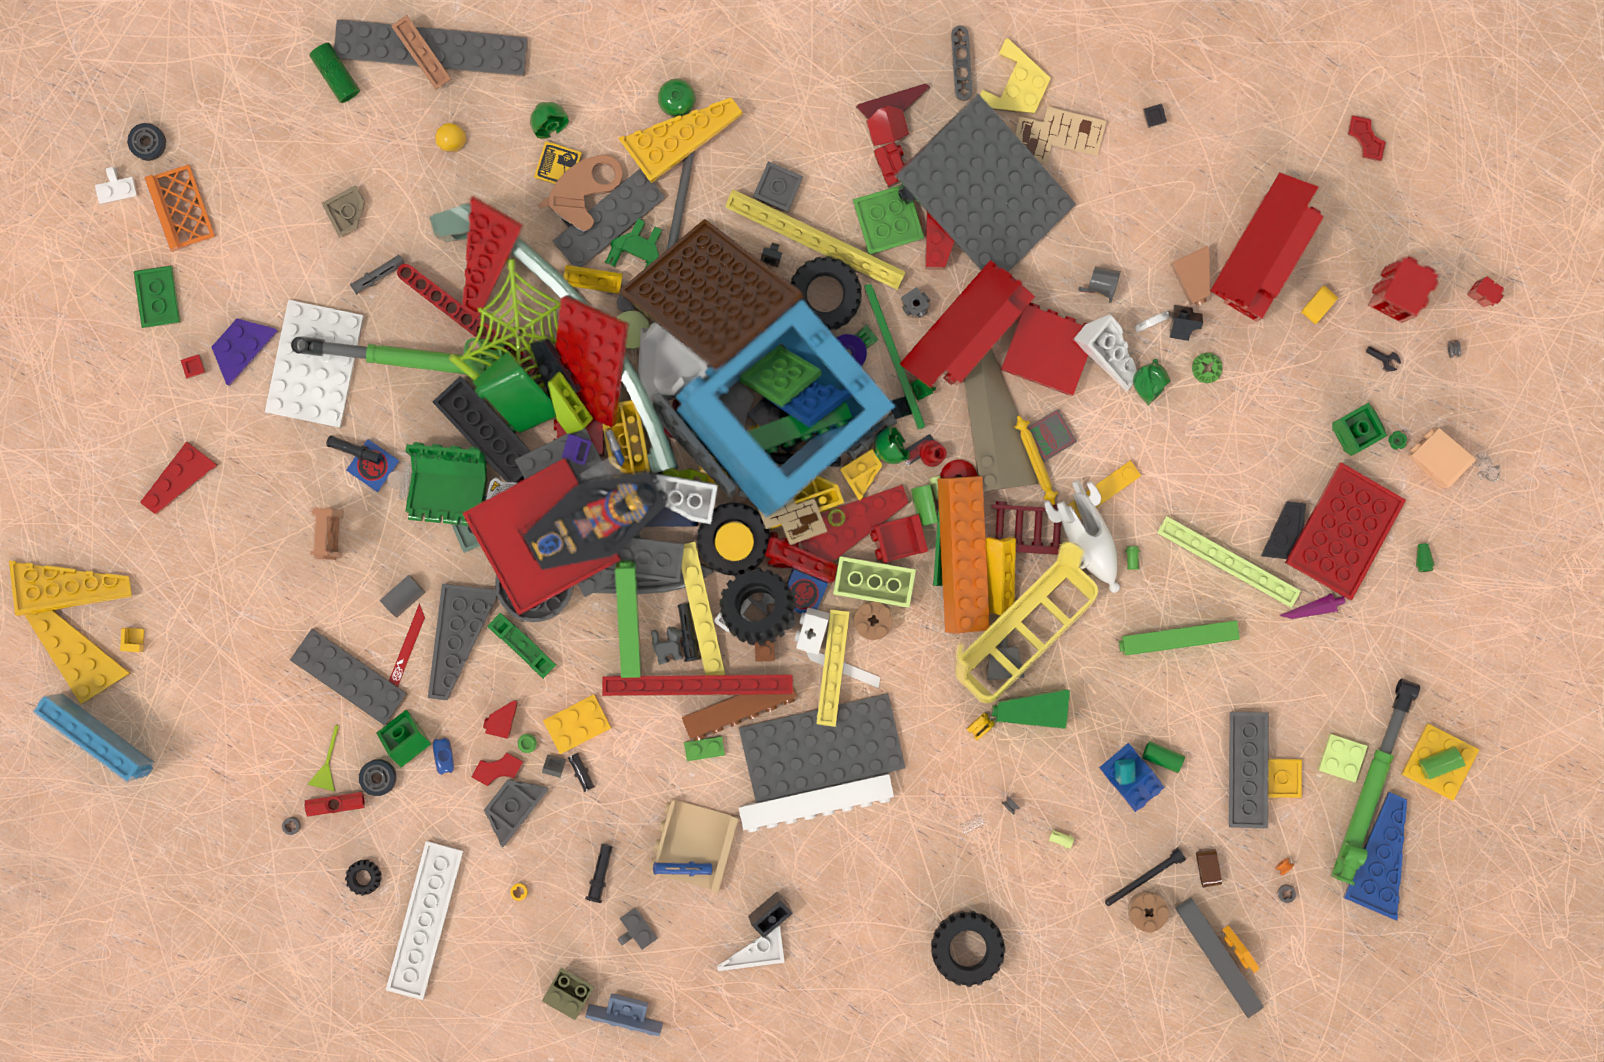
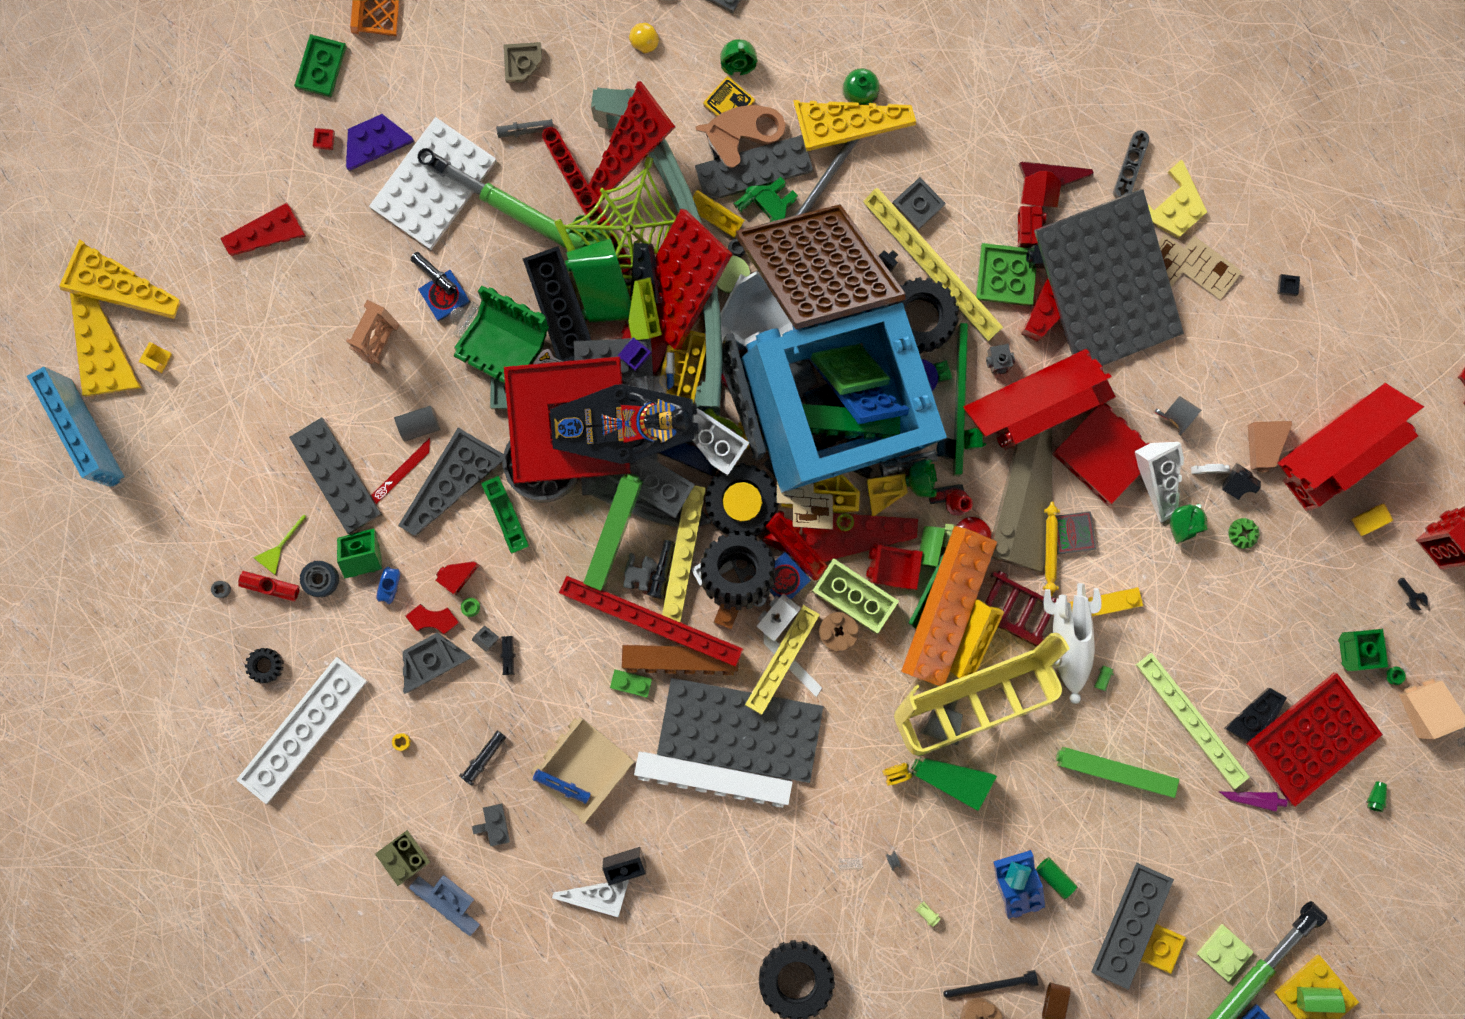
camera: 20 degrees right, 5 degrees down
(577, 724) = (524, 609): yellow plate -> none

